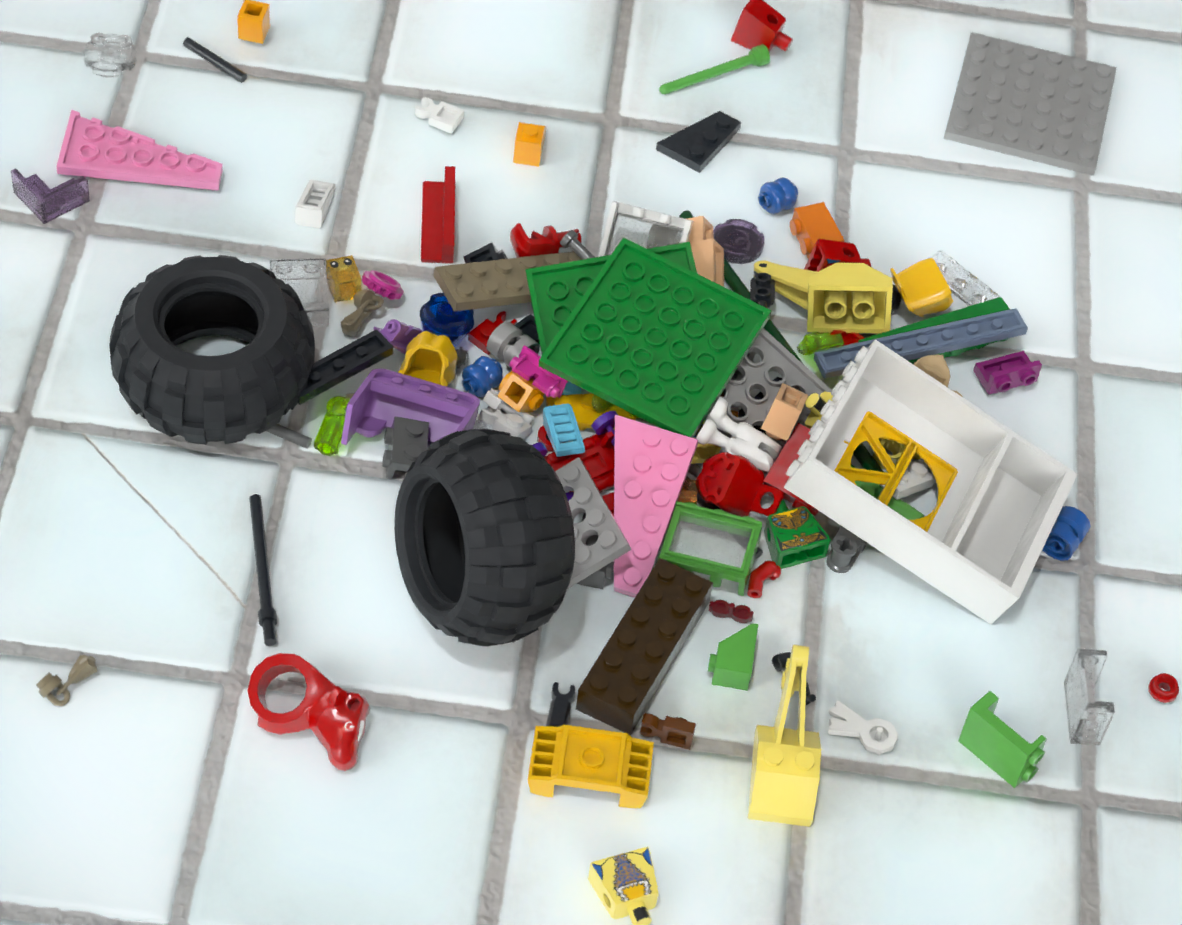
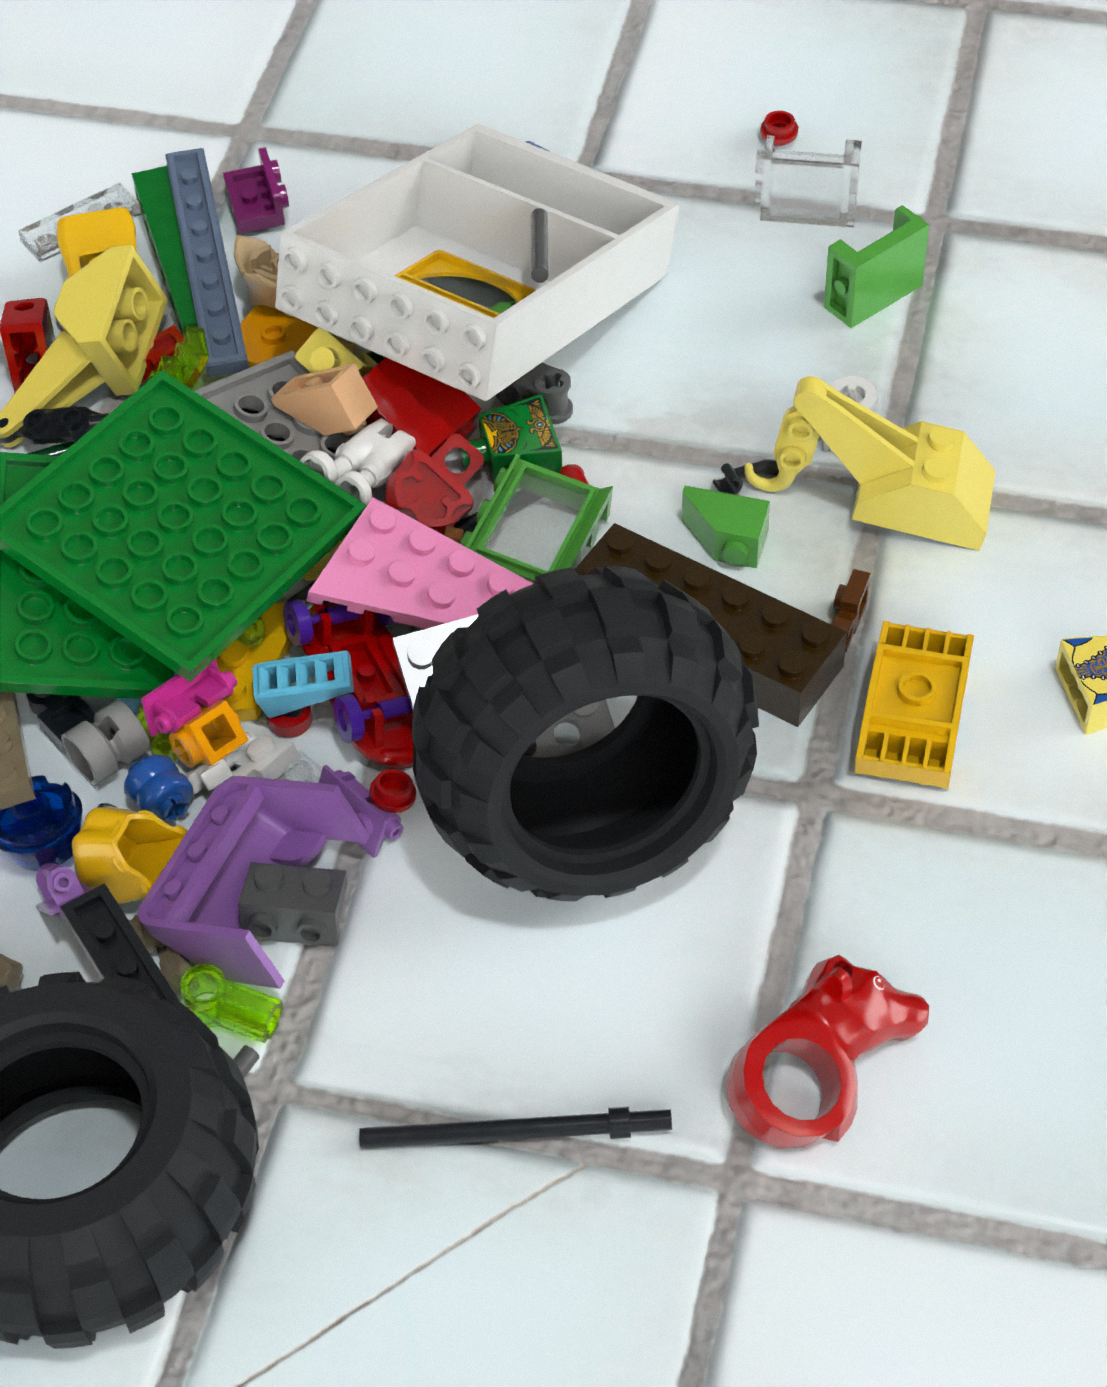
camera: 75 degrees left, 0 degrees up
(480, 334) = (62, 771): red plate -> none
(560, 706) = (806, 738): black bar -> none
(723, 609) = (642, 518): dark red piece -> none
(919, 495) = (539, 245): none -> dark grey bar

